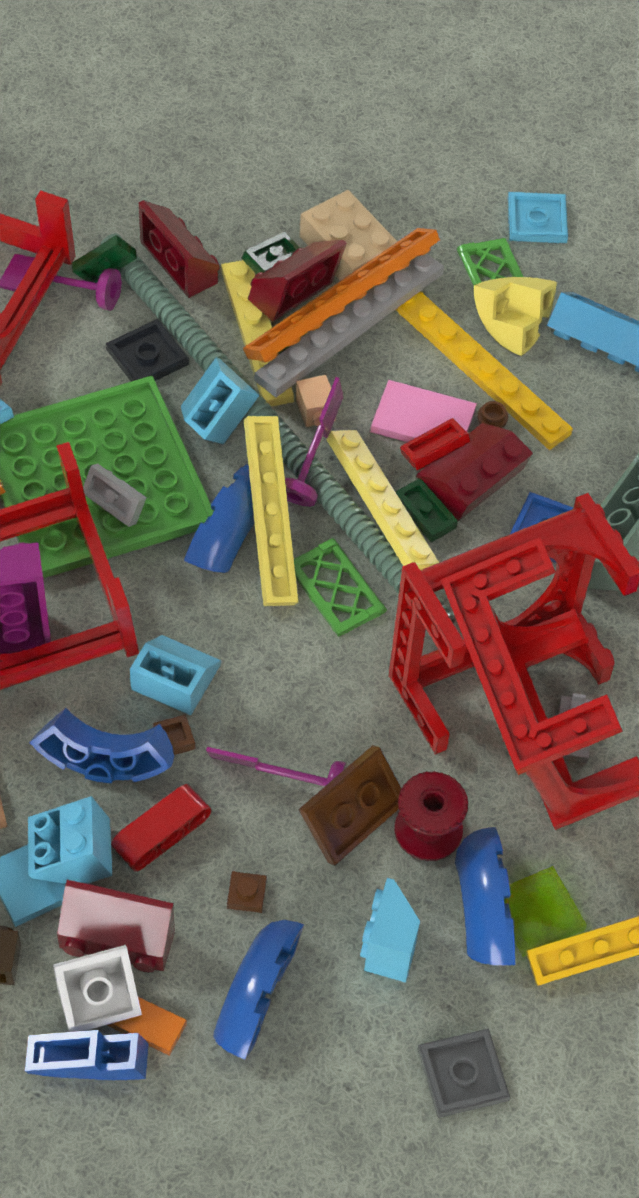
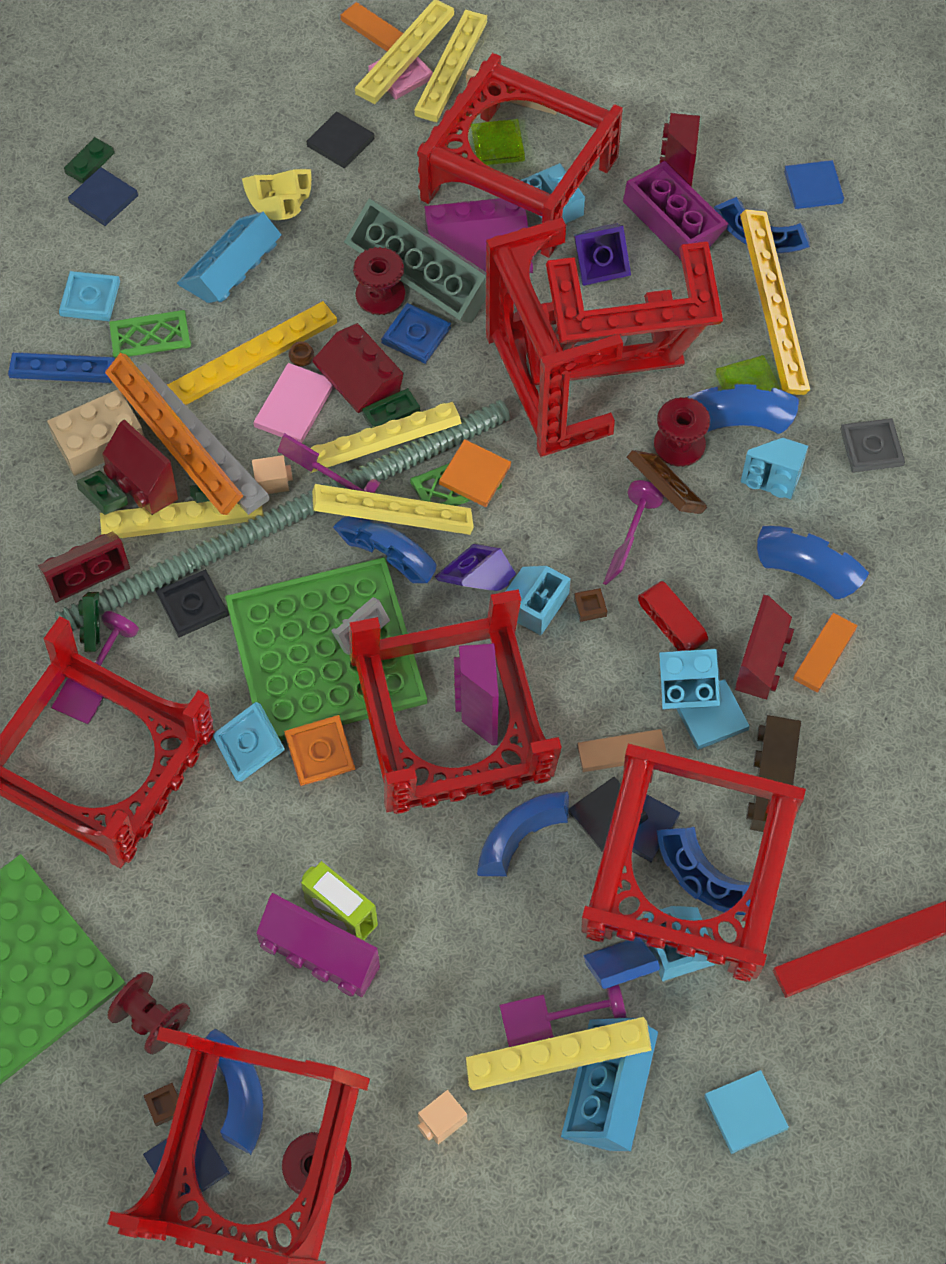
camera: 80 degrees left, 5 degrees up
(87, 1055) = (861, 679): blue slope -> none
(97, 989) = (815, 664): white slope -> none
(101, 754) = (604, 652): blue brick -> none
(206, 611) = (479, 568): none -> dark purple slope
(218, 403) = (267, 544): medium azure slope -> none
(246, 892) = (727, 567): reddish brown plate -> none
(345, 600) = (475, 473): none -> orange tile
(435, 443) = (331, 393): red tile -> none
(437, 204) = (60, 367): none -> blue tile
(514, 309) = (197, 321): light yellow brick -> none
(601, 462) = (379, 281): none -> dark red hose

